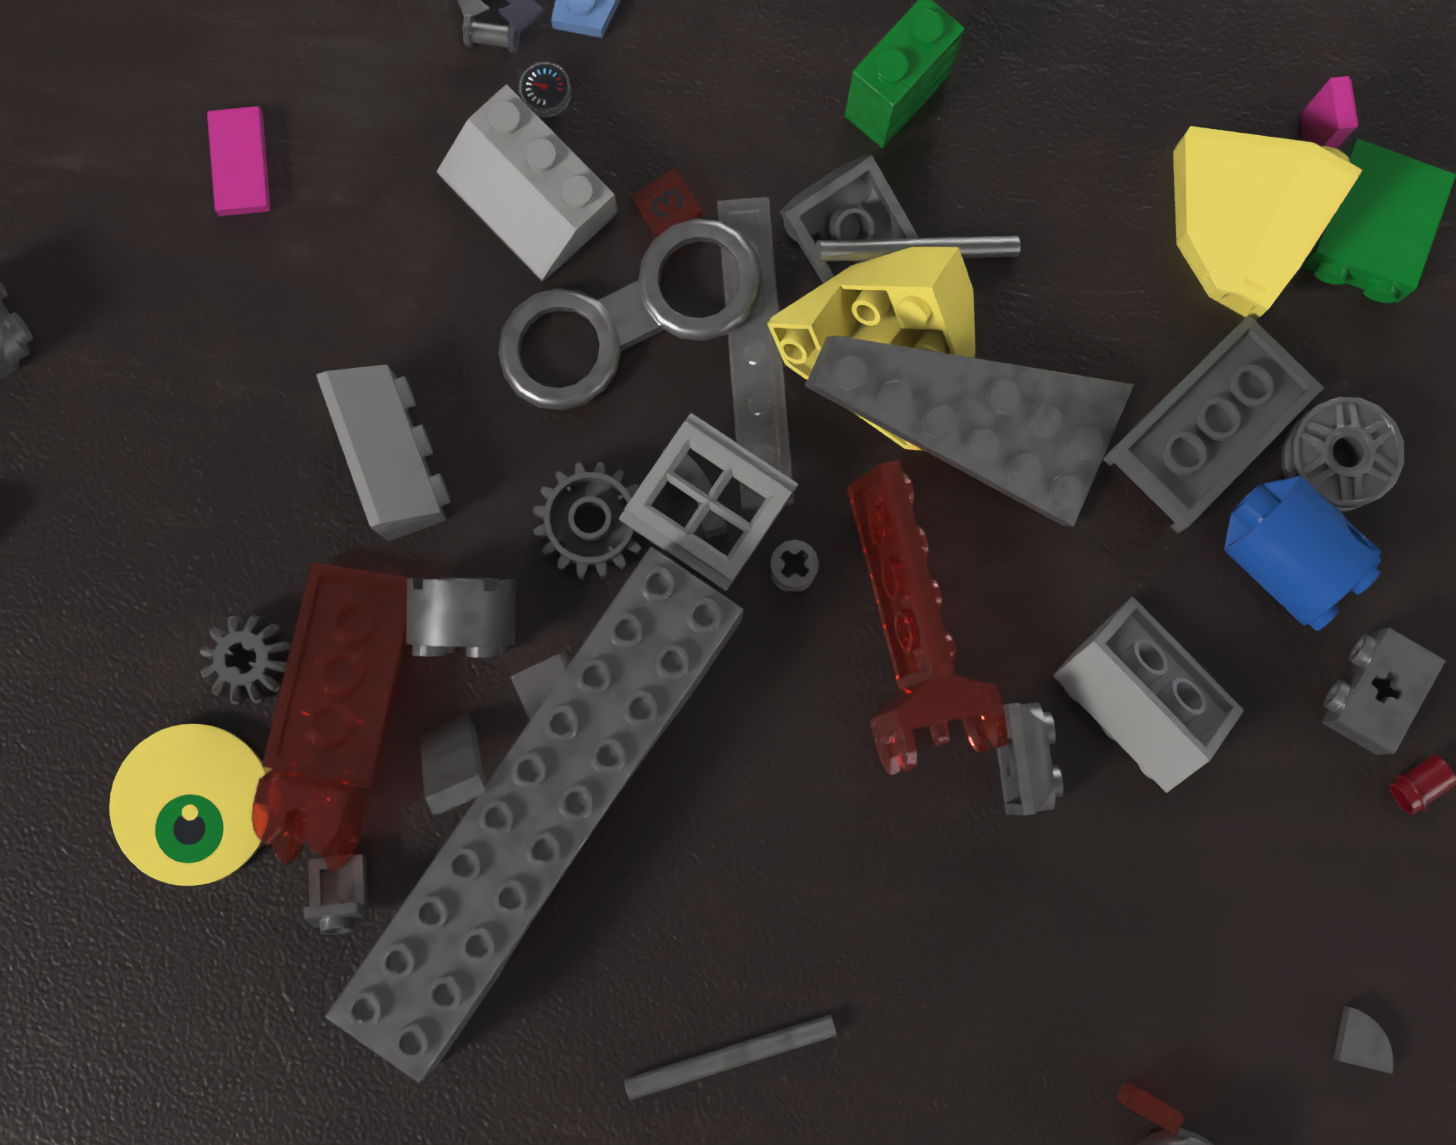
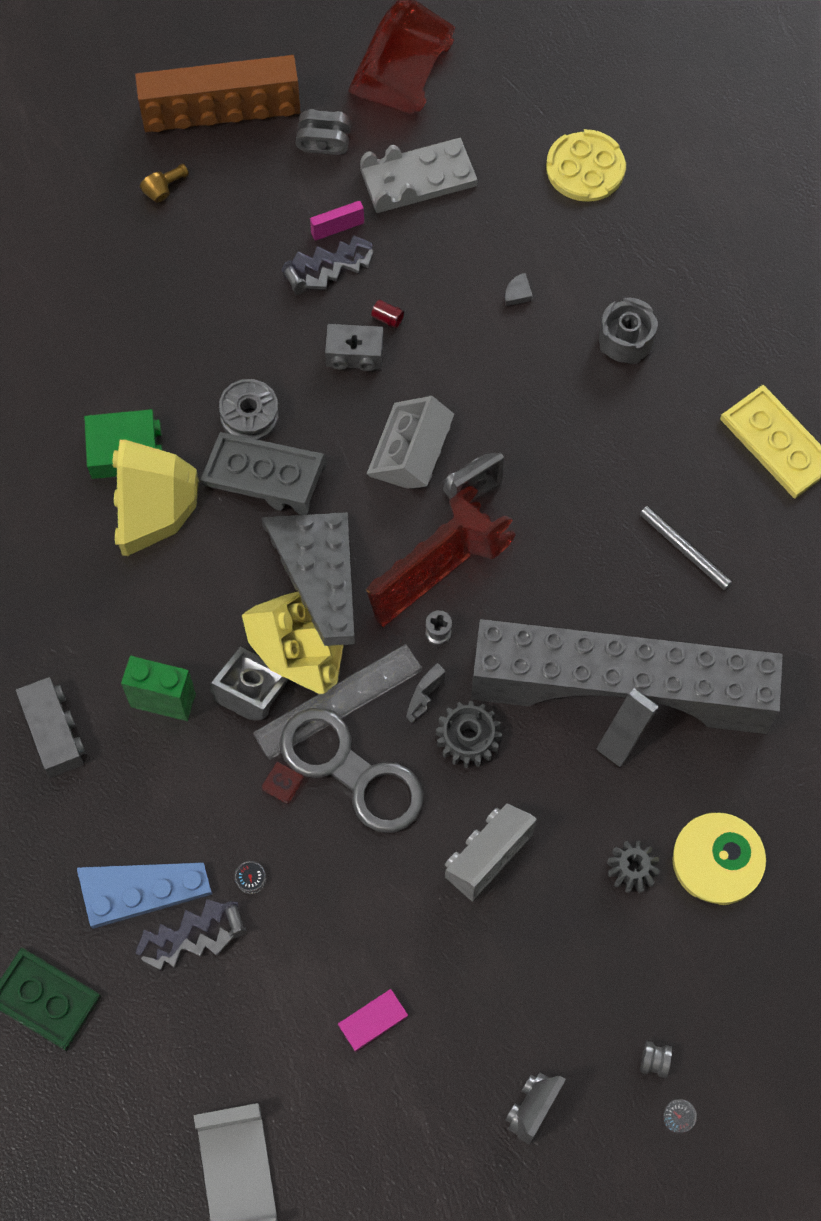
camera: 115 degrees left, 15 degrees down
(331, 713) = (633, 804): clear red hinge -> none
(337, 897) = (719, 759): flat silver bracket -> none
(460, 614) = (552, 767): flat silver brick -> none
(526, 183) = (309, 856): light grey slope -> none
(537, 682) = (563, 717): clear tile -> none
(682, 541) = (457, 678): light grey piece -> none
(872, 248) = (242, 641): flat silver bar -> none
(1150, 1107) = (599, 360): clear red tile -> none
(1300, 549) = (308, 403): blue cylinder -> none
(1330, 114) = (84, 483): dark pink tile -> none

